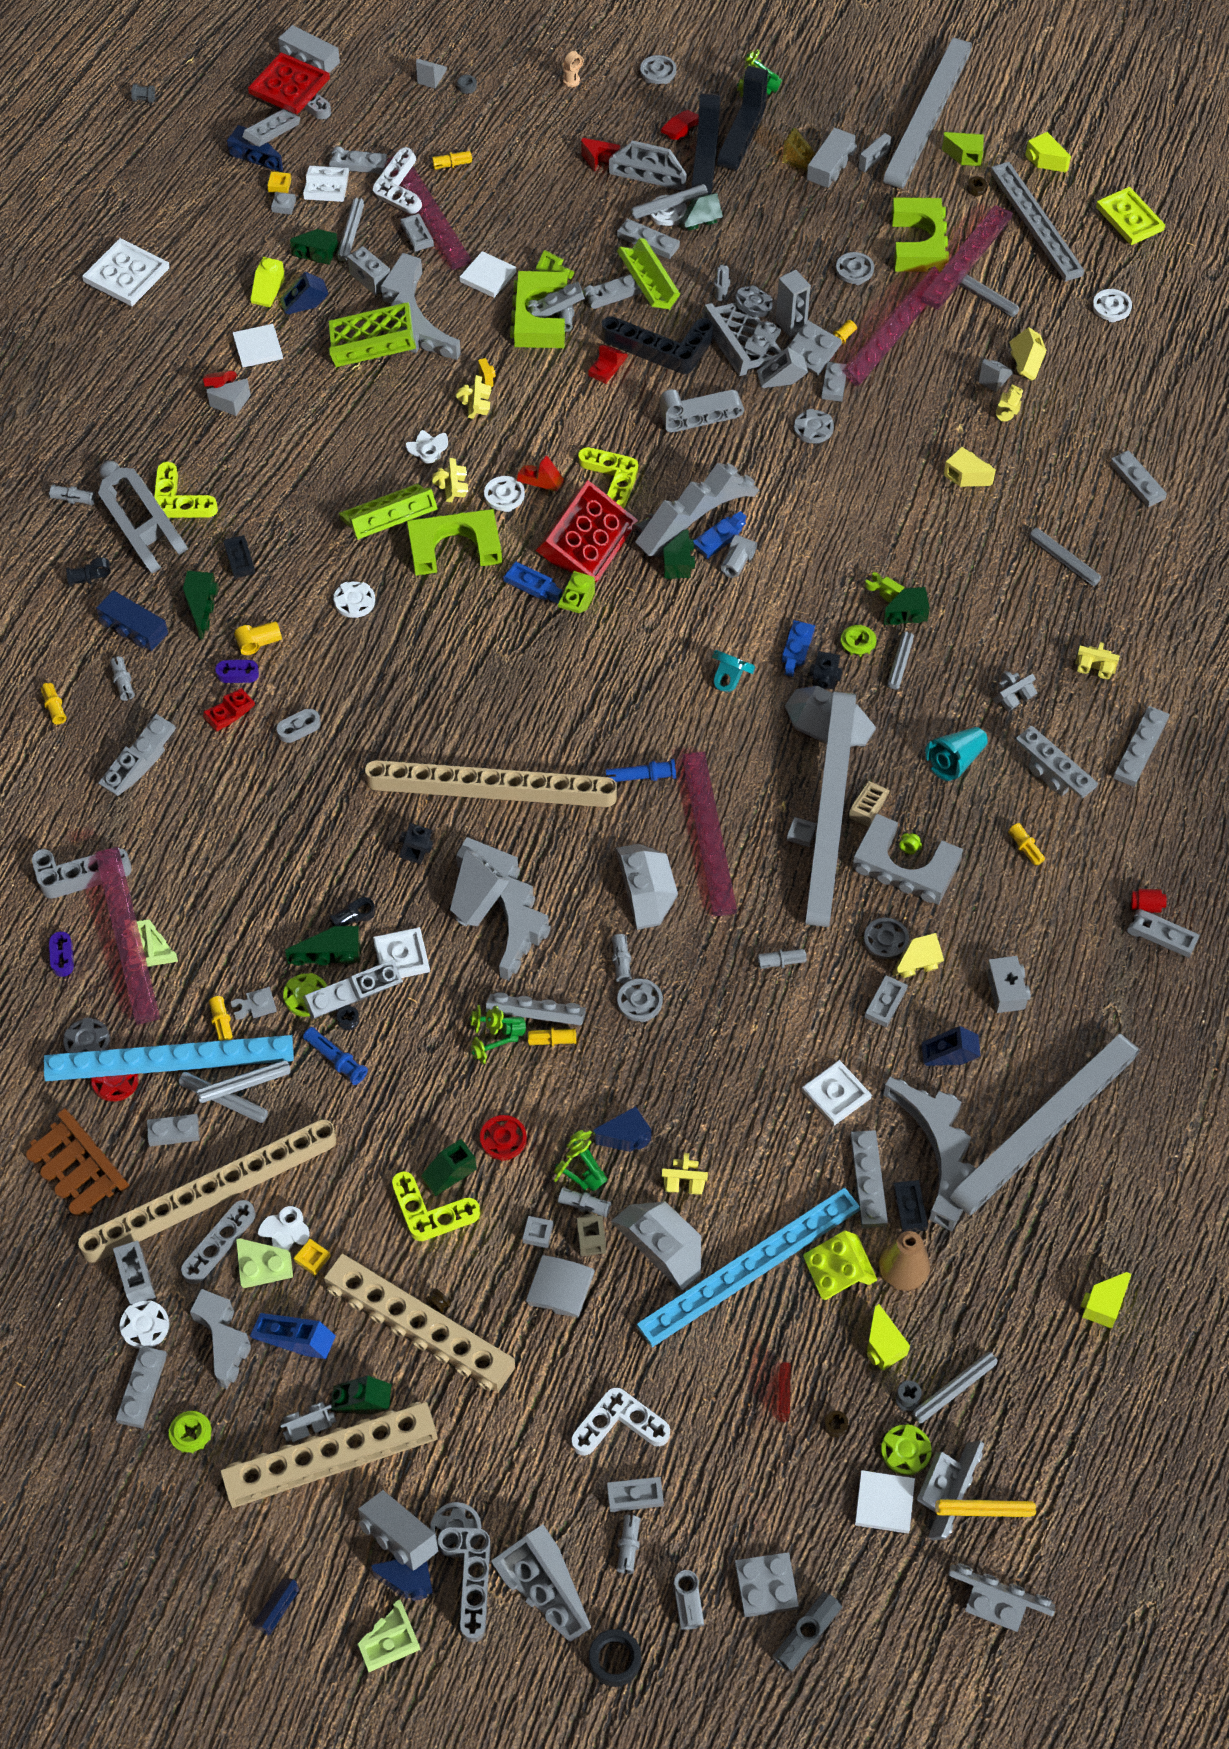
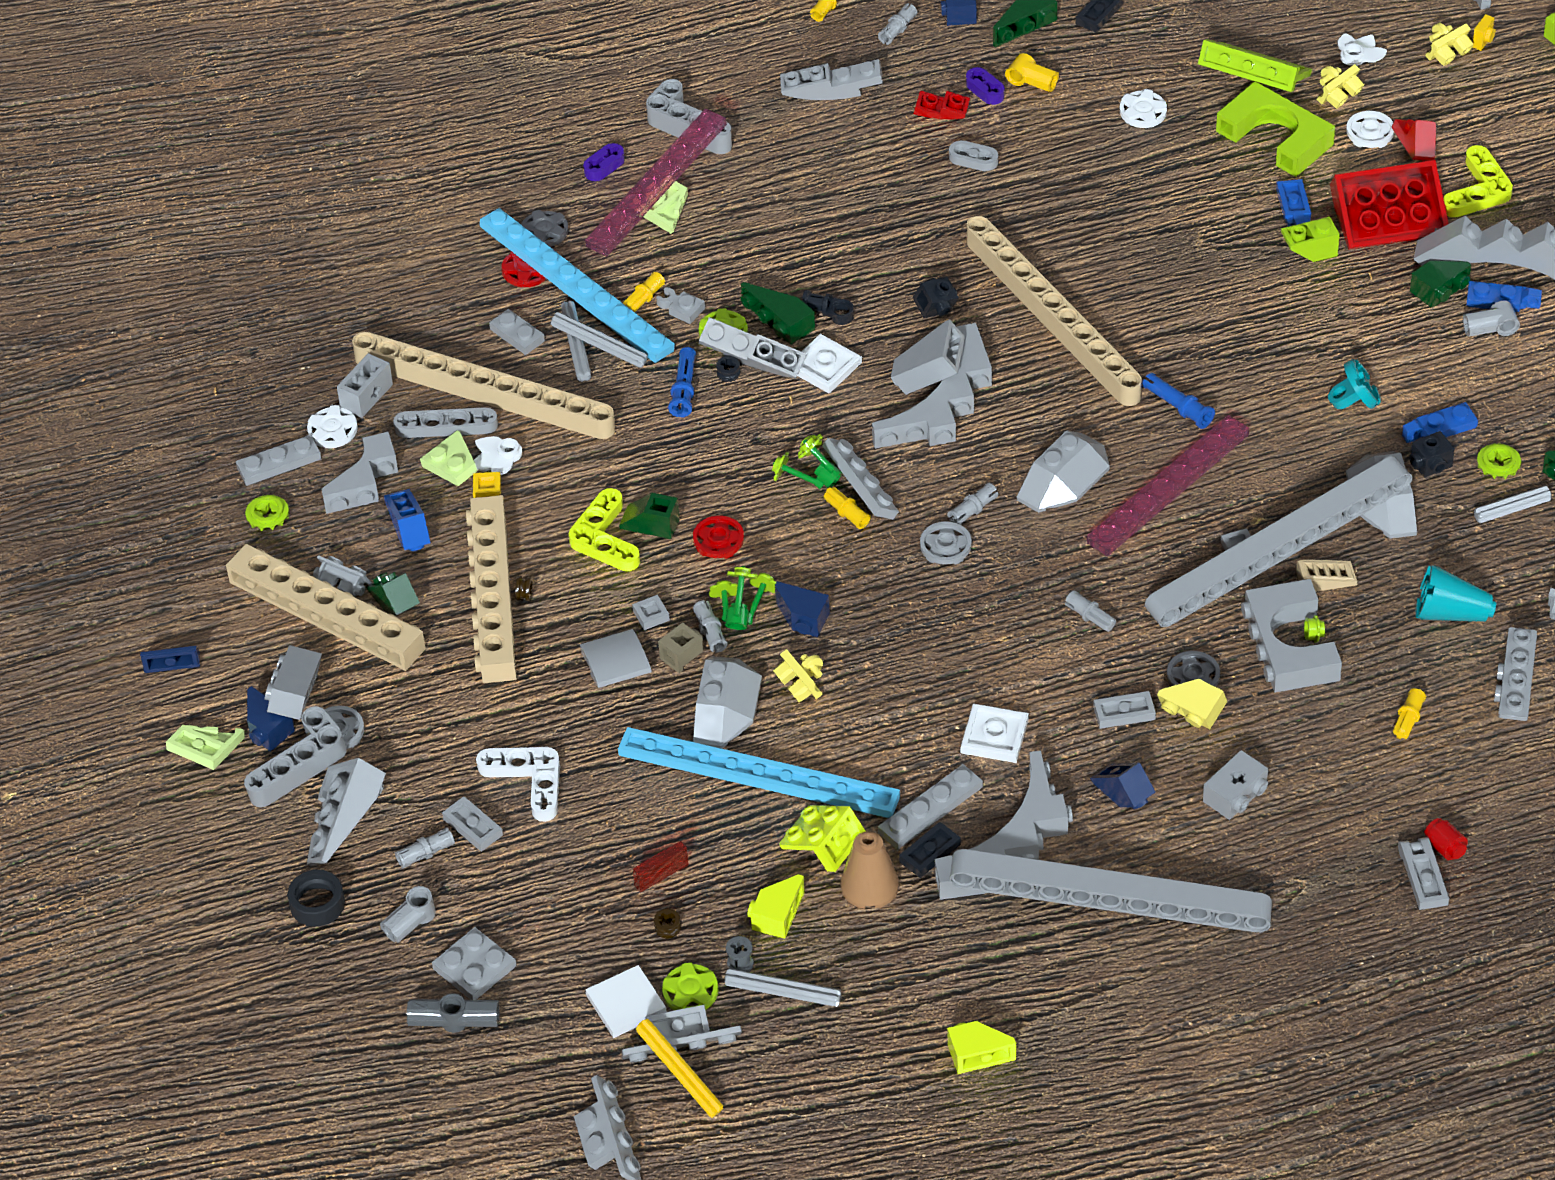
camera: 55 degrees right, 10 degrees down
(88, 1168) = (443, 297): dark orange fence -> none

